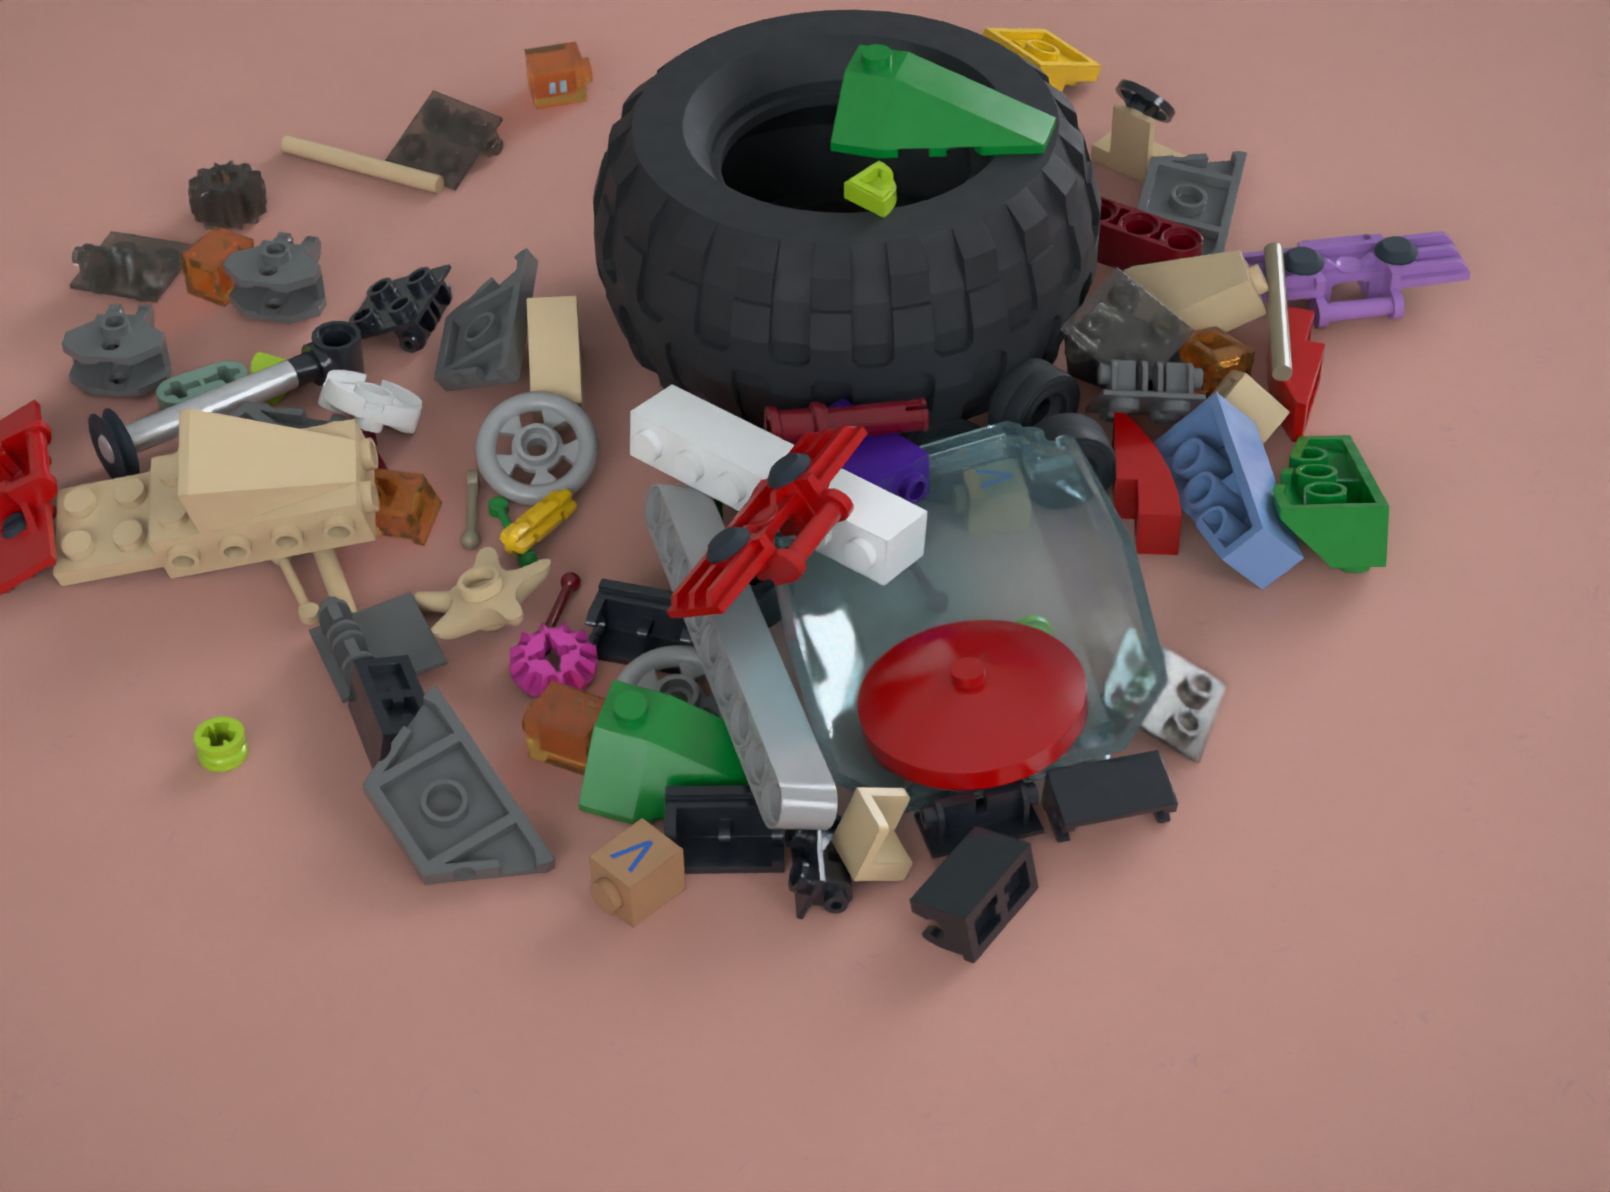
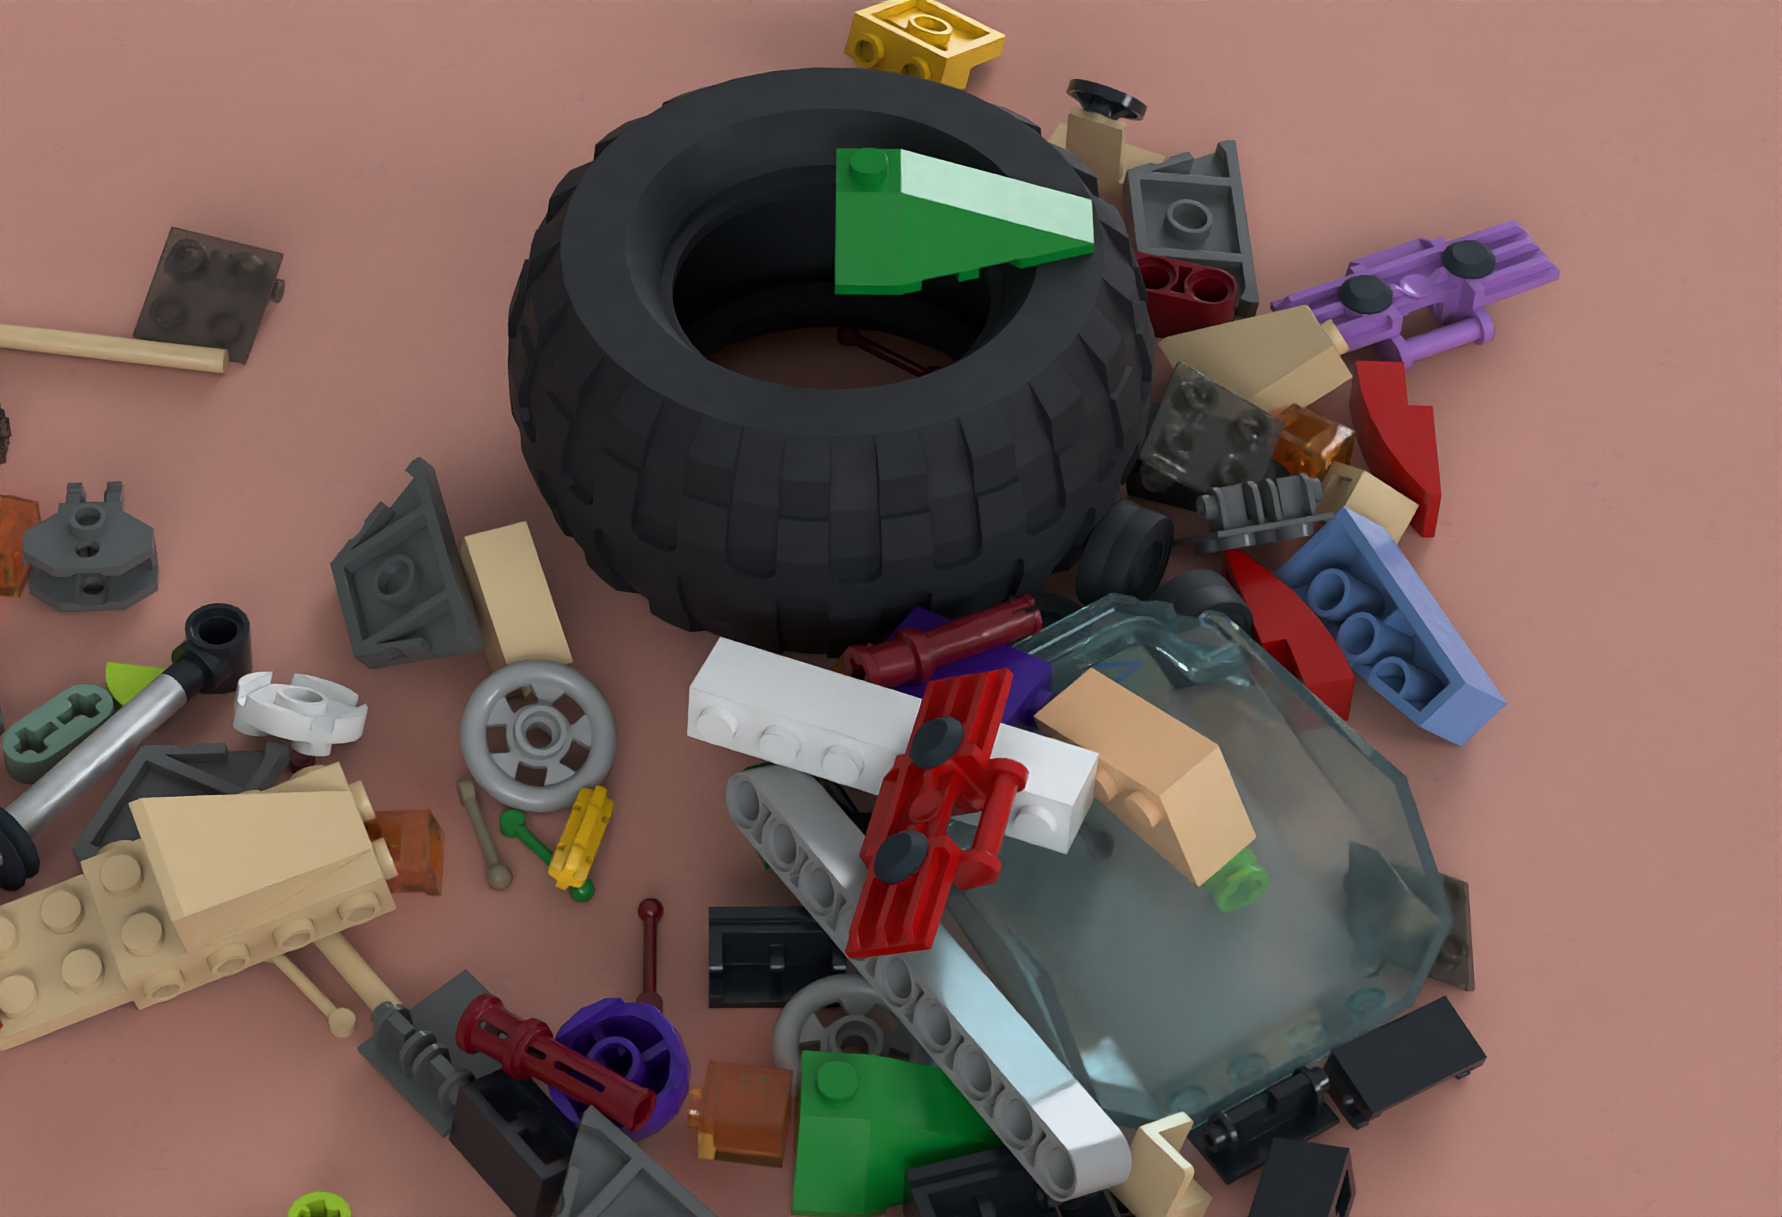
camera: 20 degrees left, 5 degrees up
(405, 306) = (265, 559): black hinge -> none
(458, 685) = (534, 1053): none -> dark red pin
(482, 673) = (635, 1044): none -> dark purple cylinder
(483, 596) = (565, 955): tan animal -> none
(534, 673) = (712, 1029): dark pink gear -> none
(557, 75) = (314, 168): clear orange brick -> none
(873, 189) = (917, 346): lime tile -> none
(973, 704) = (1215, 983): red dish -> none
(979, 544) = (1153, 774): none -> light nougat wedge
(1277, 312) = (1367, 374): dark tan bar -> none
(1334, 503) = (1514, 616): green wedge -> none

